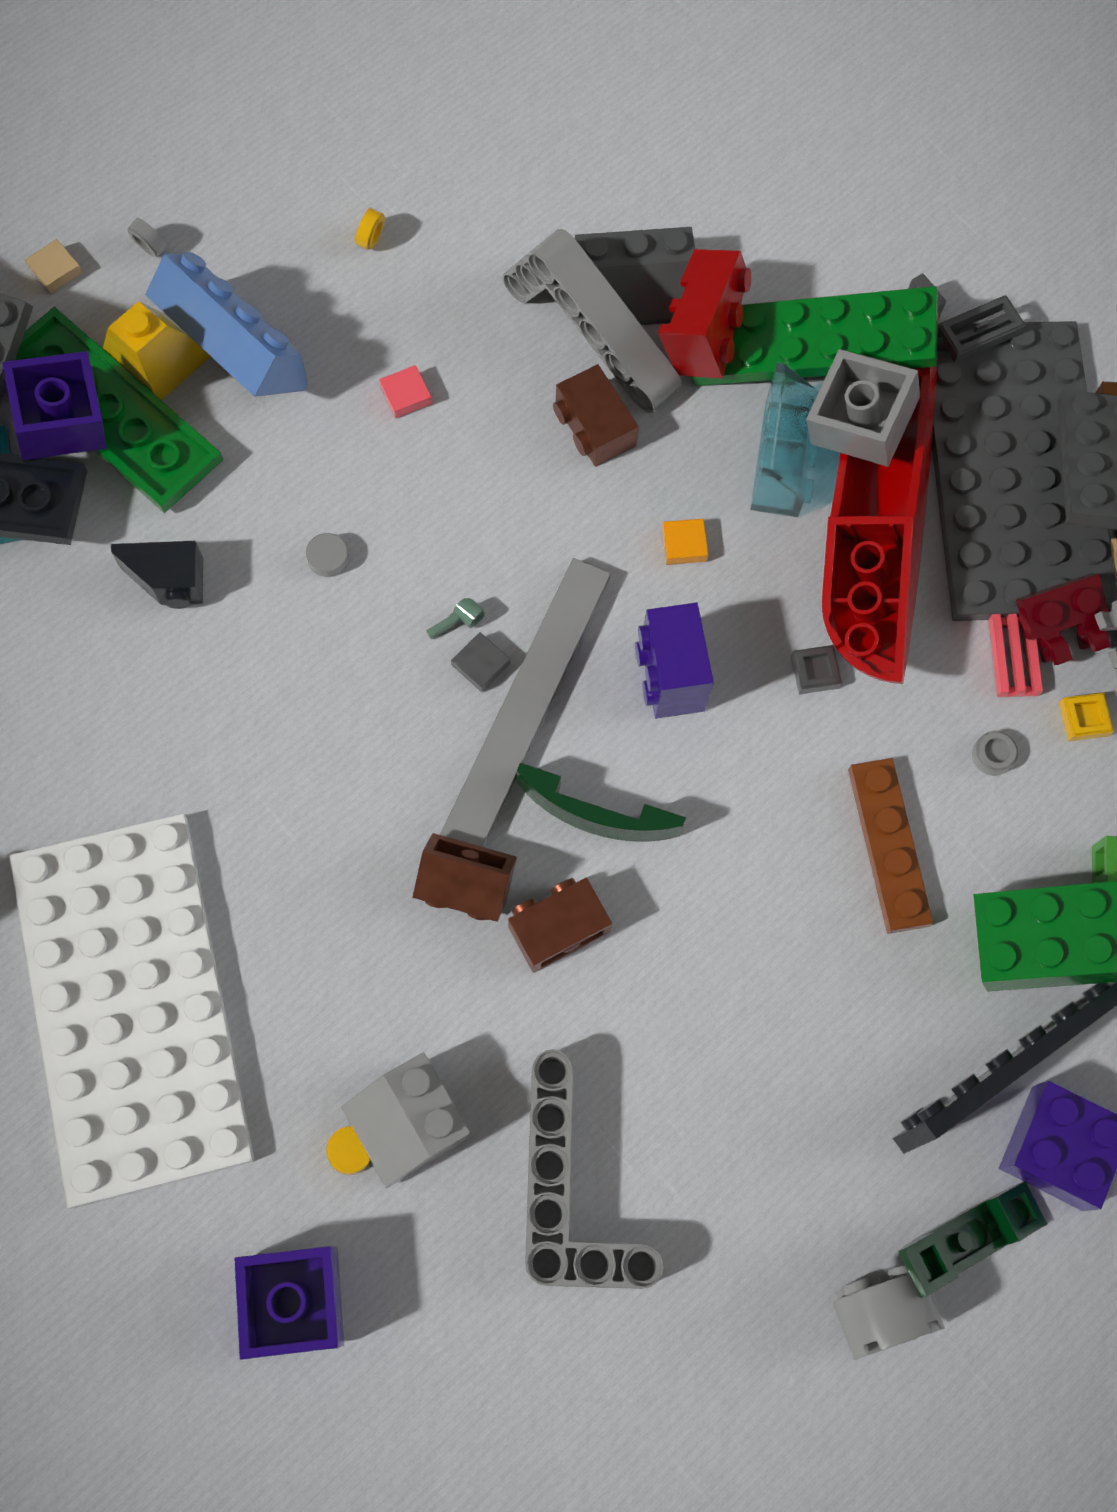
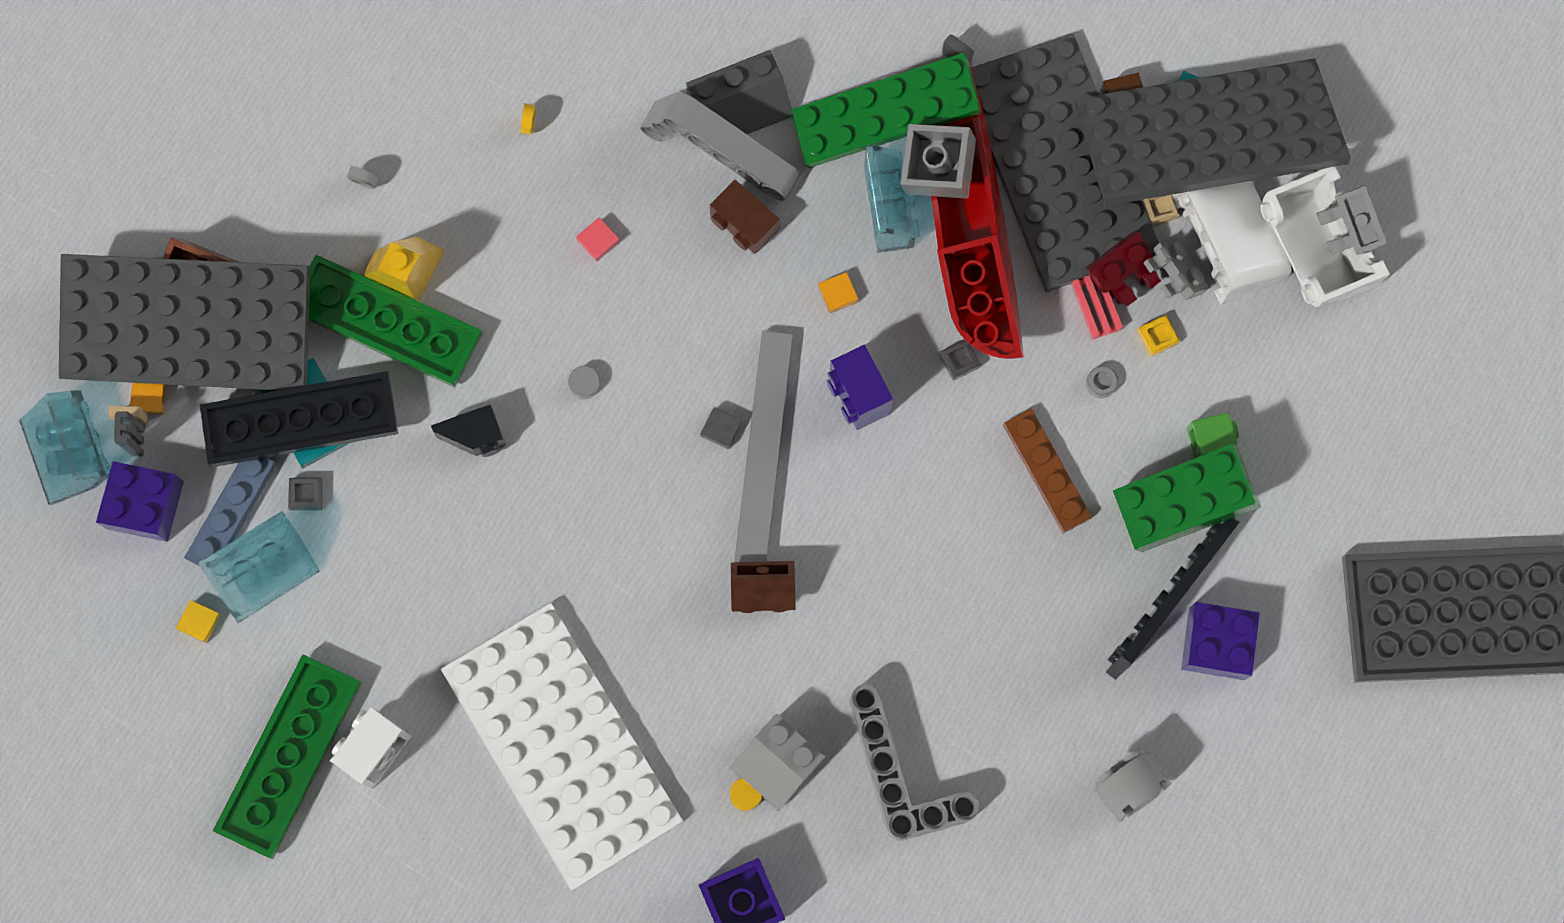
camera: 15 degrees left, 5 degrees up
(53, 266) = (299, 220): tan tile -> none
(54, 405) = (354, 336): dark purple brick -> none
(226, 326) = (454, 235): medium blue slope -> none
(466, 611) = (700, 394): sand green hand -> none
(558, 923) = (836, 597): copper brick -> none
(651, 826) = (797, 508): dark green slope -> none
(707, 314) = (803, 116): red wedge -> none
(954, 342) = (986, 81): dark grey tile -> none
(970, 1237) = (1174, 720): dark green slope -> none

